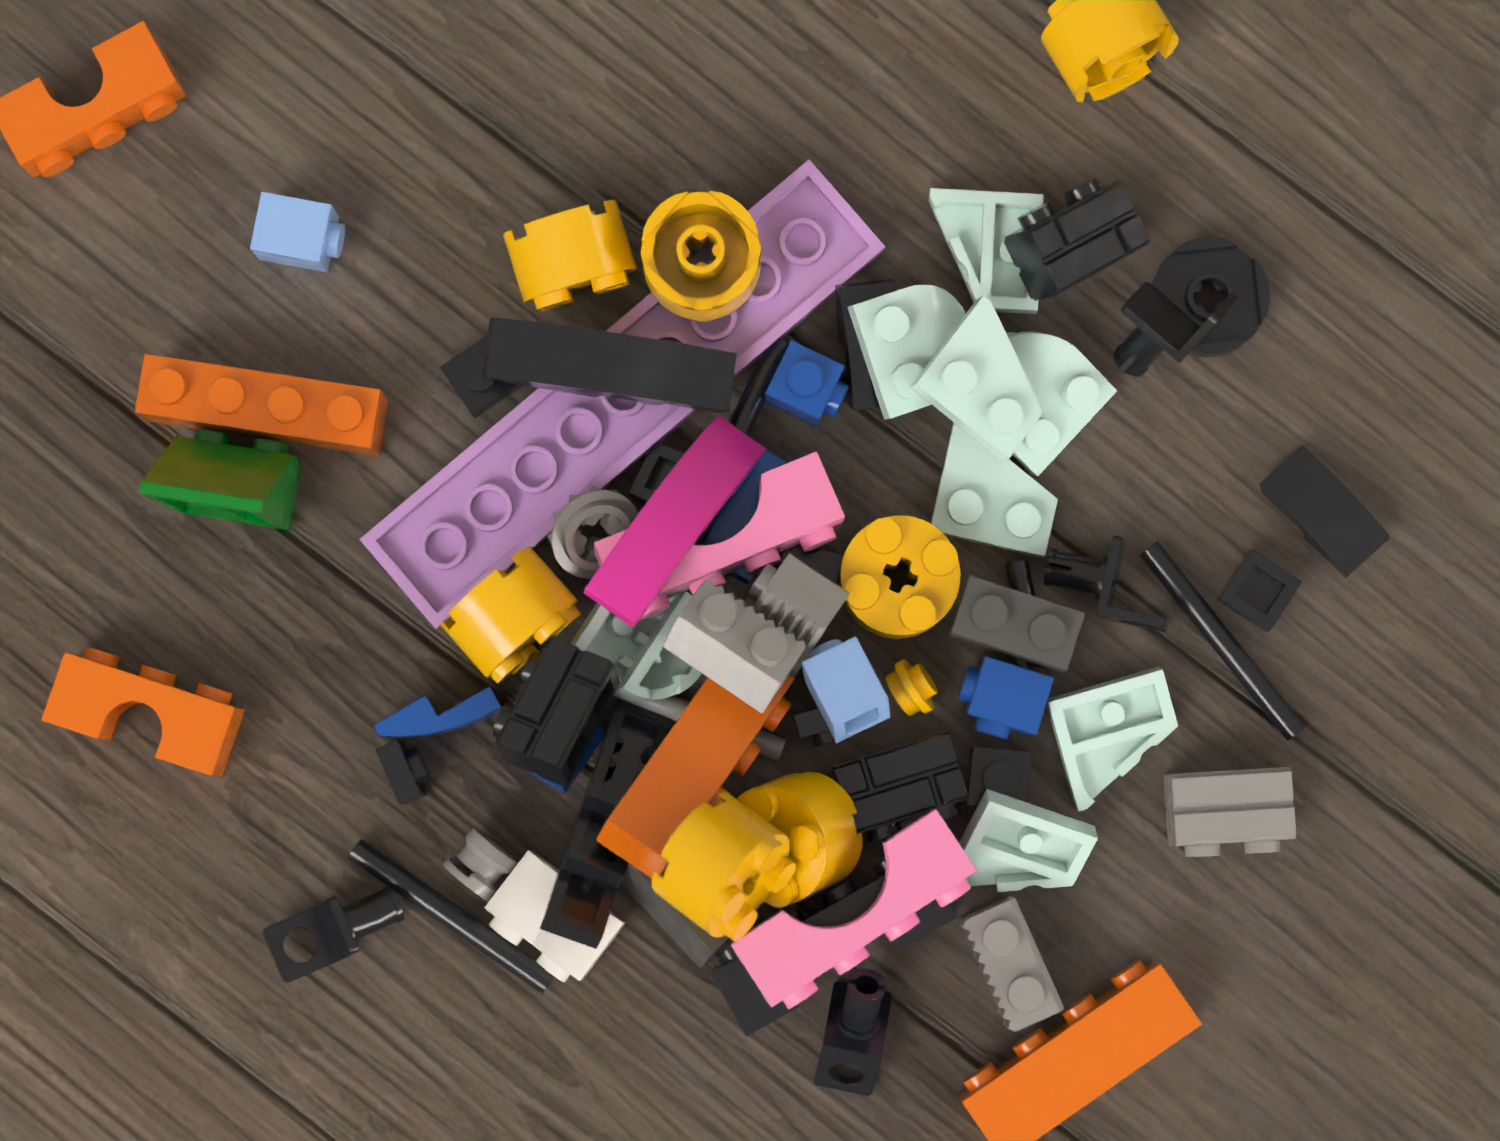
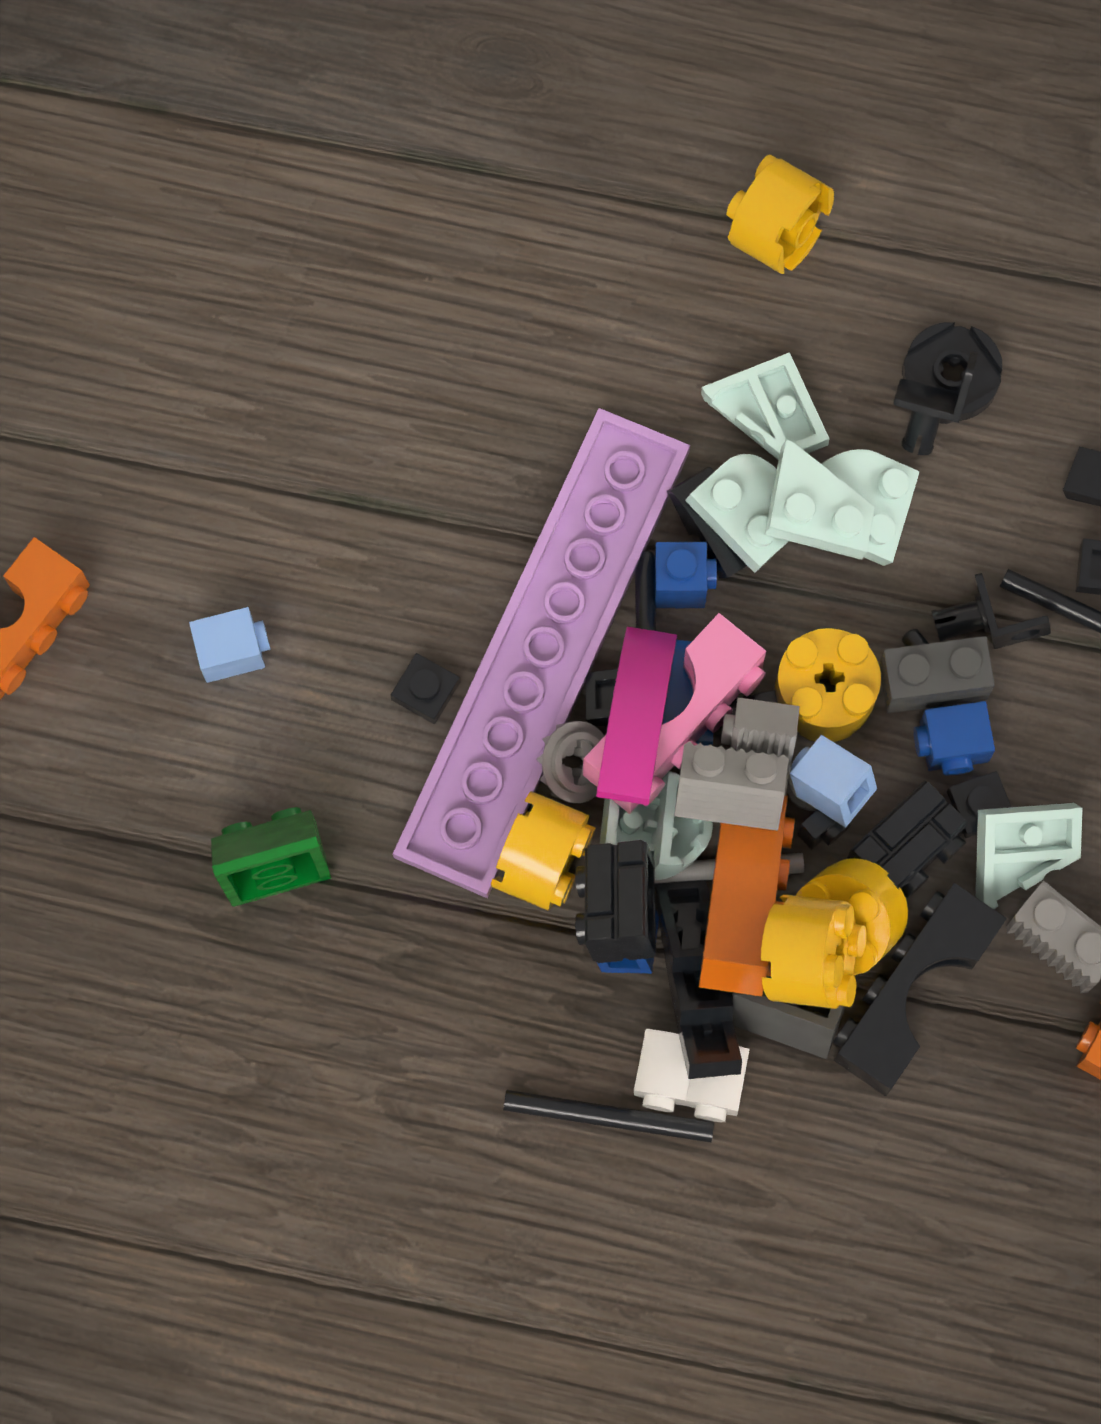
camera: 25 degrees left, 10 degrees down
(94, 694) = (240, 1069): orange arch -> none
(262, 405) = (265, 784): orange brick -> none
(334, 929) = (522, 1168): black bracket -> none
(404, 770) = (516, 1016): black plate -> none
(424, 718) = (512, 969): blue slope -> none
(480, 864) = (612, 1060): light grey wheel -> none
(569, 254) = (452, 559): yellow brick -> none
(608, 365) = (524, 625): black slope -> none
(701, 222) = (536, 490): yellow brick -> none
(855, 1032) = (972, 1049): black bracket -> none
(912, 687) = (882, 763): yellow plate -> none
(921, 866) = (893, 1000): bright pink arch -> none
(991, 500) = (865, 594): light aqua wing -> none
(1077, 239) = (832, 372): black brick -> none
(1109, 728) = (1046, 725): light aqua wing -> none

